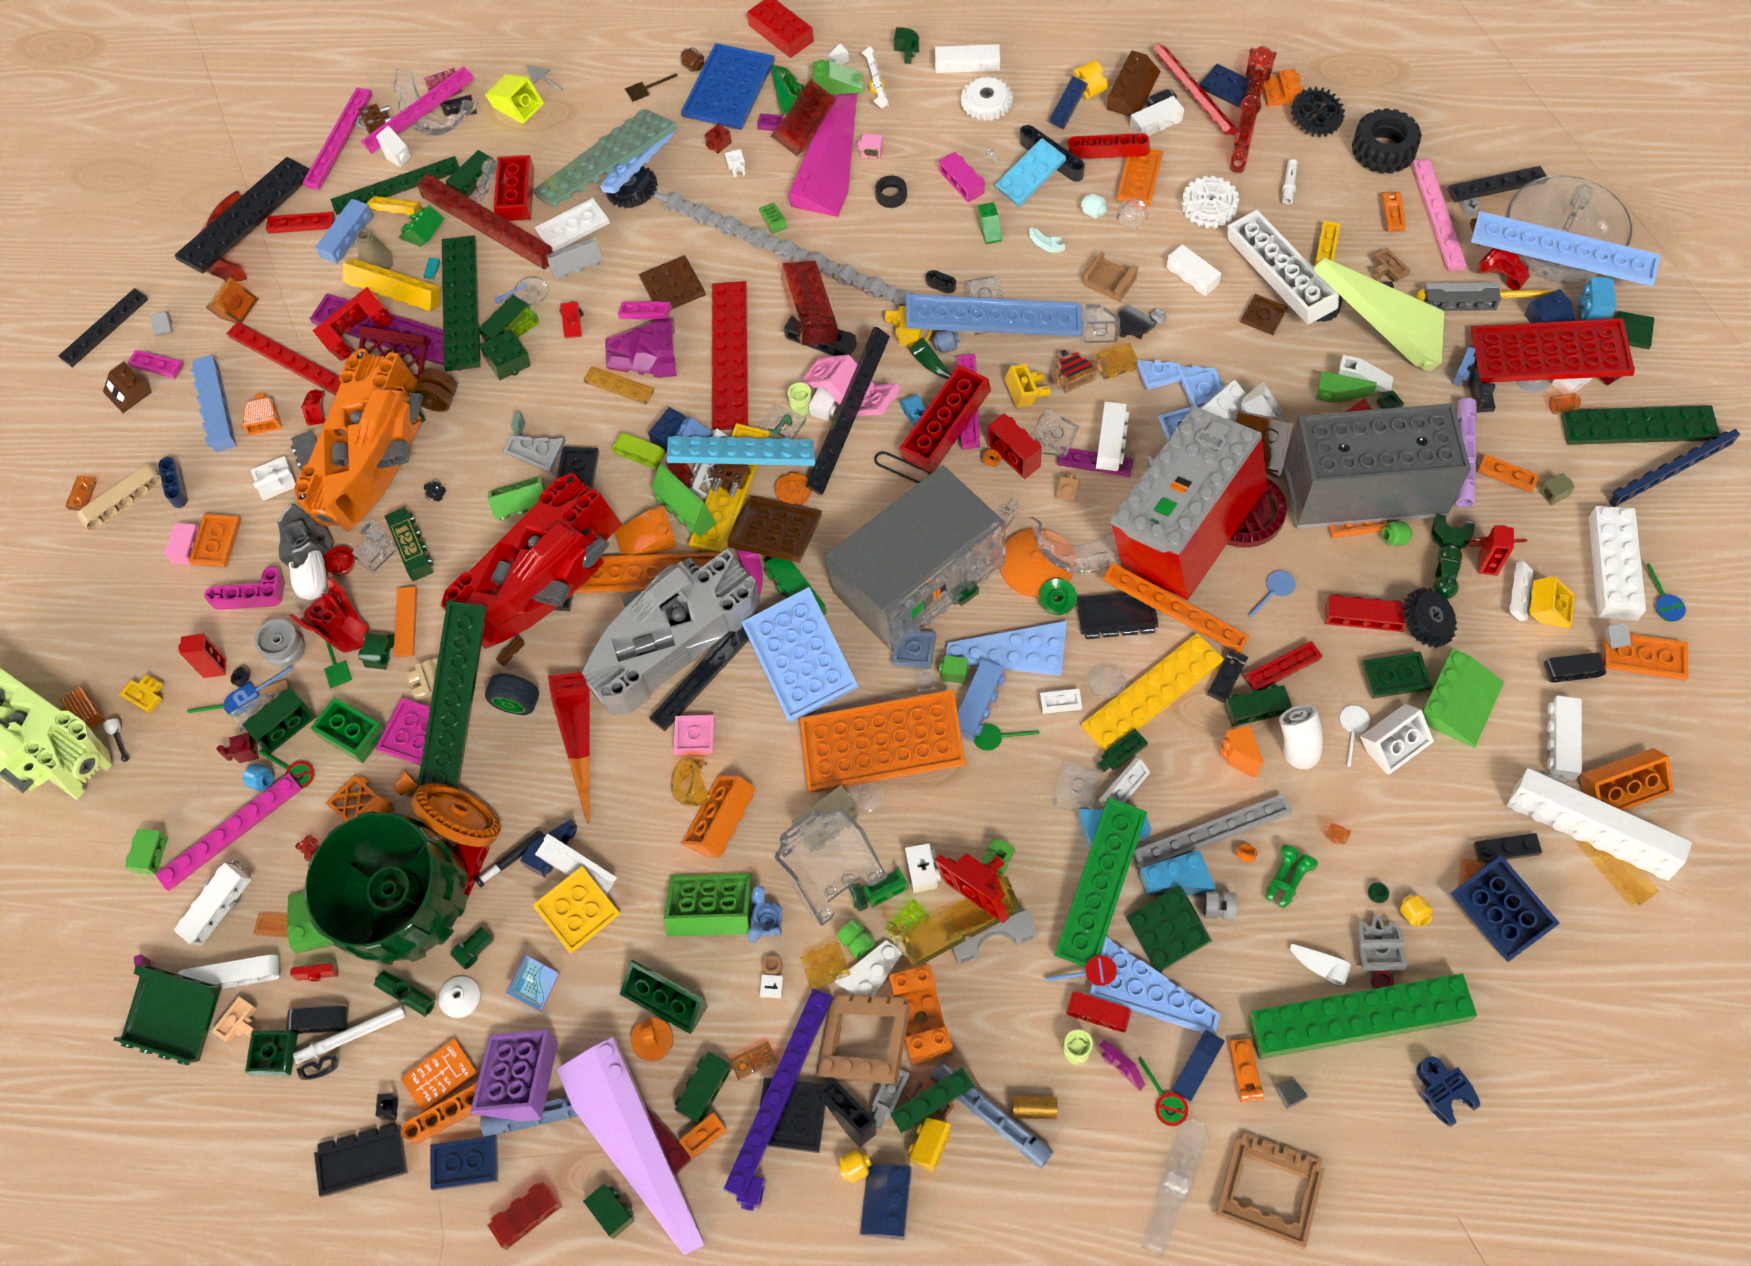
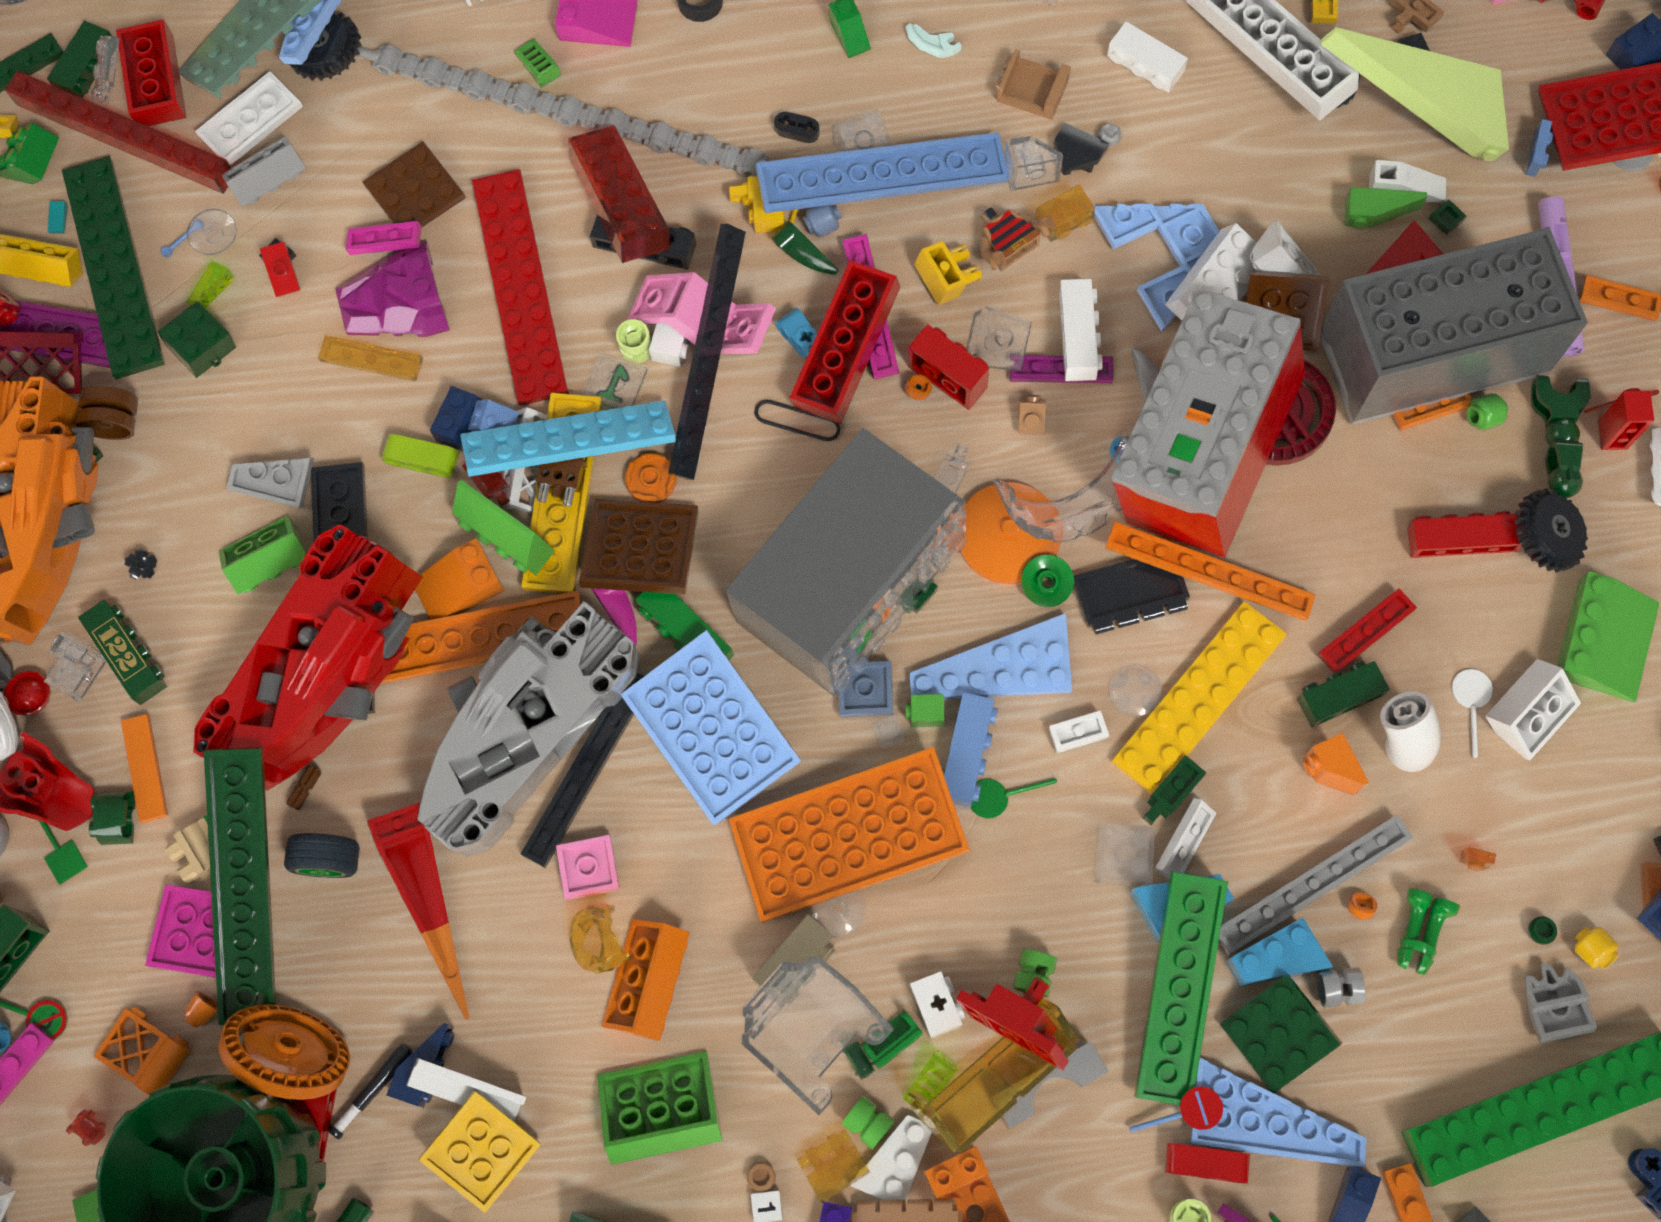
camera: 10 degrees left, 10 degrees up
(348, 730) = (100, 947): green brick -> none
(502, 318) = (180, 283): dark green brick -> none
(518, 424) = (239, 443): sand green tile -> none
(762, 914) = (732, 1108): medium blue hair -> none
(1227, 676) = (1294, 657): black plate -> none
(1264, 314) = (1254, 109): reddish brown tile -> none
(1278, 583) = (1342, 510): medium blue piece -> none
(1327, 966) = (1492, 1046): white piece -> none
(1382, 979) = (1566, 1051): dark red tile -> none
(1396, 675) = (1518, 617): dark green plate -> none
(1470, 295) = (1531, 39): piece -> none
(1482, 393) = (1568, 184): black panel -> none

